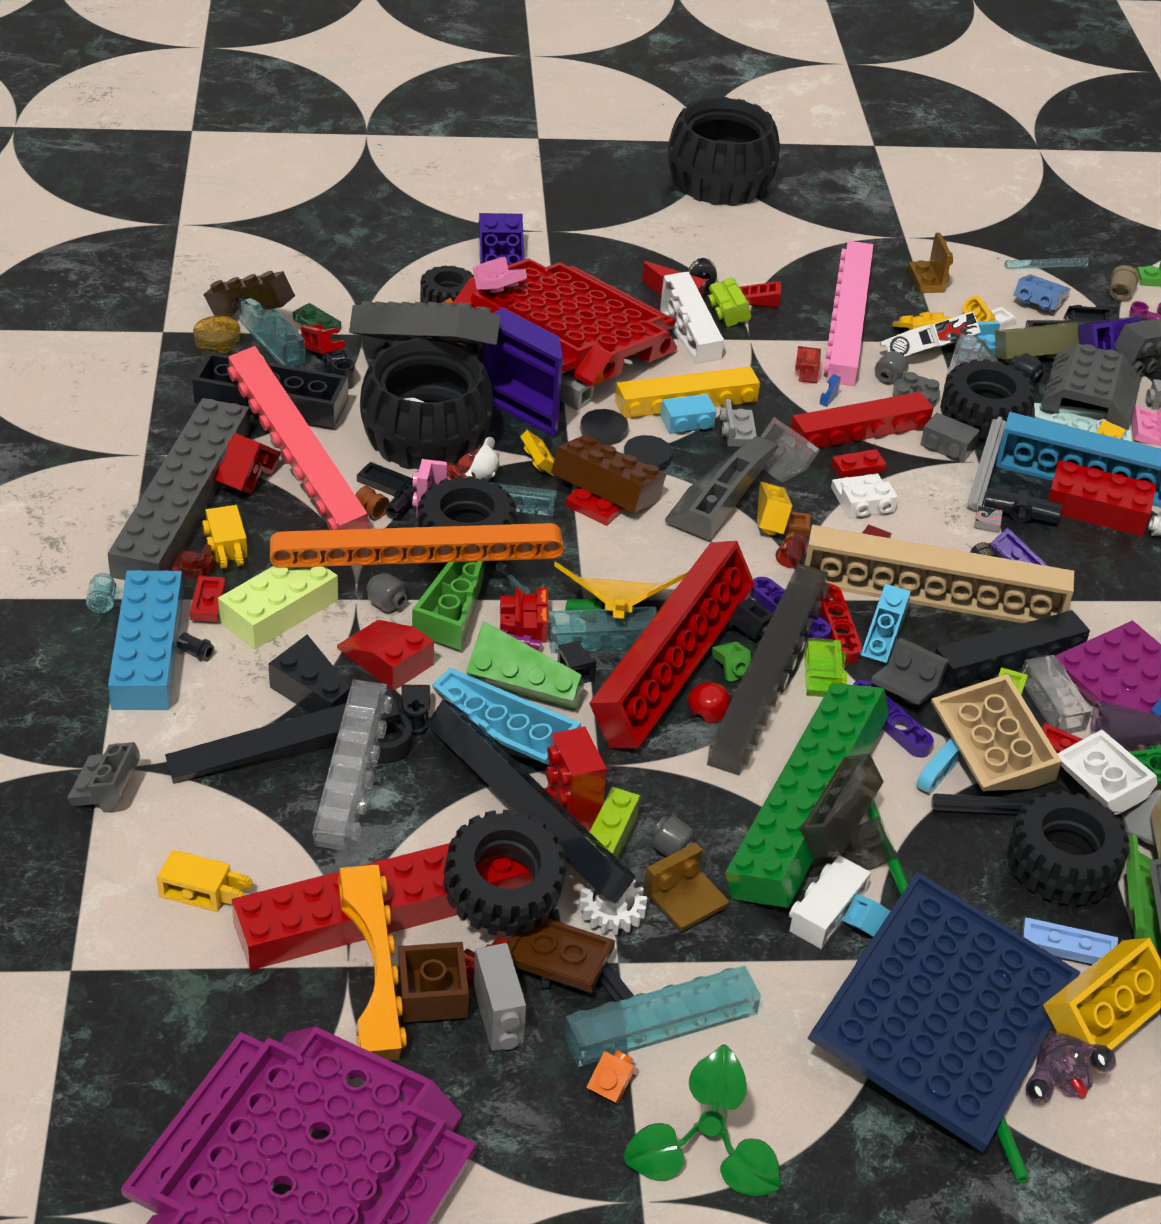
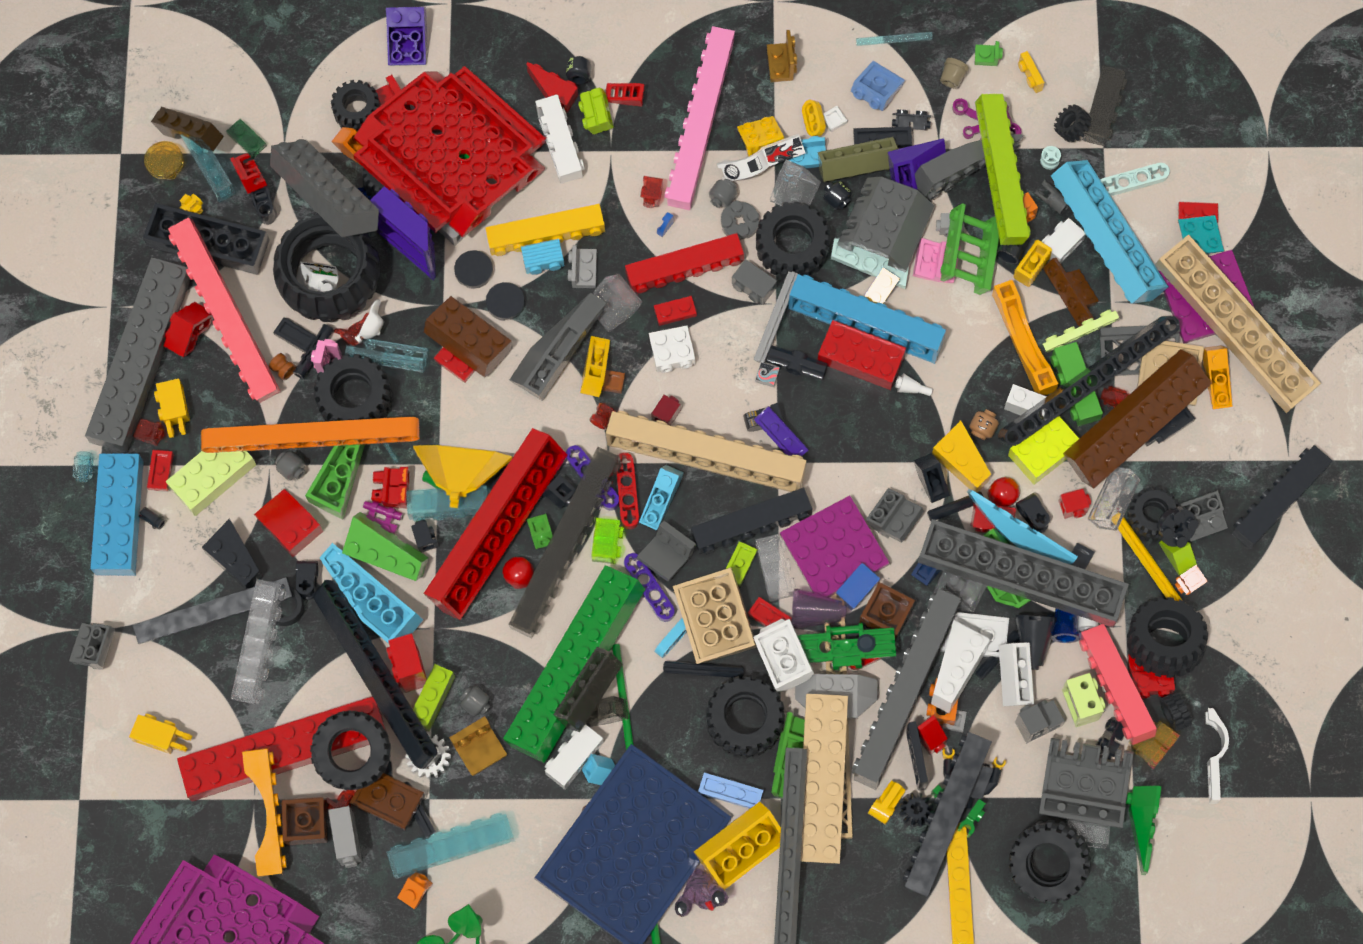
camera: 10 degrees right, 30 degrees up
(495, 275) = (390, 119): bright pink bracket -> none
(537, 449) = (417, 305): yellow plate -> none

